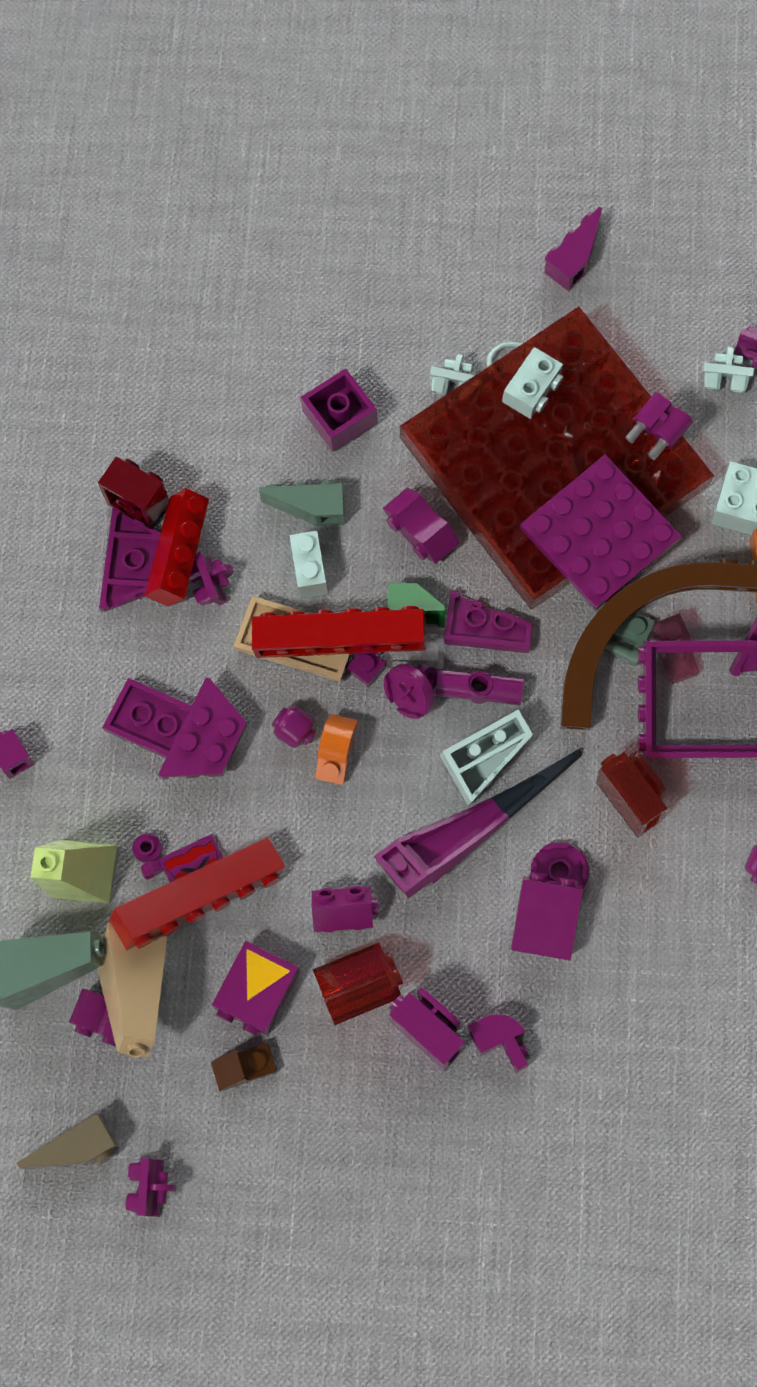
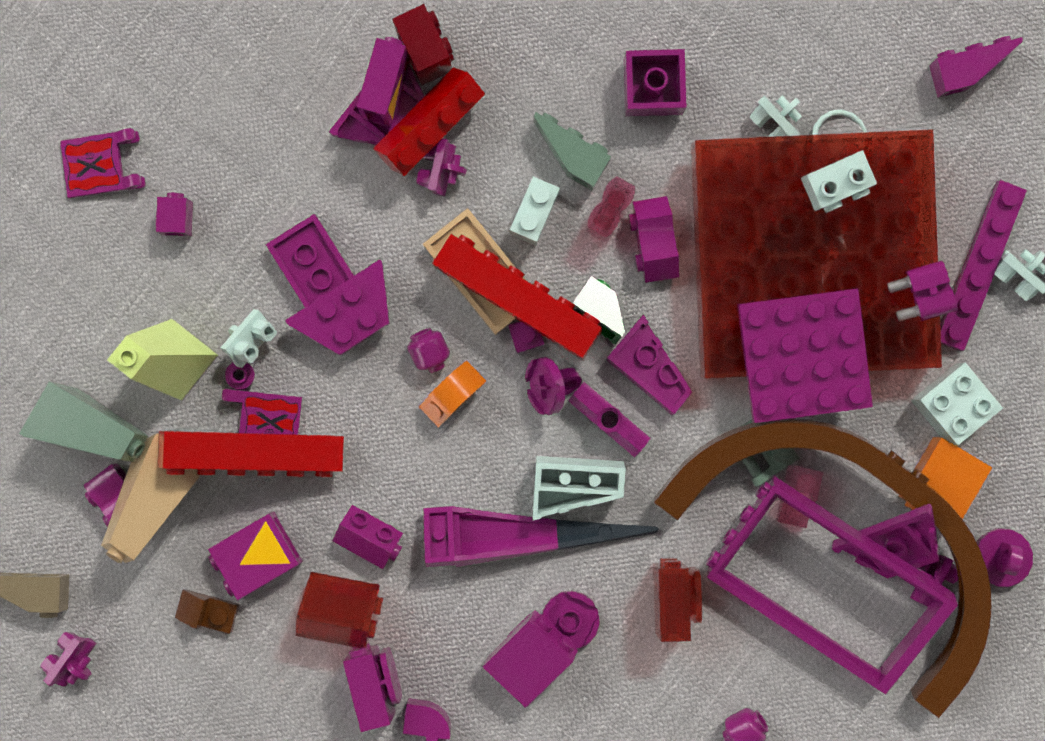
camera: 25 degrees right, 15 degrees up
(121, 536) = (383, 81): none -> magenta brick
(135, 812) = (247, 338): none -> light aqua hips
(368, 524) = (613, 204): none -> clear pink brick
(691, 387) = (981, 263): none -> magenta plate

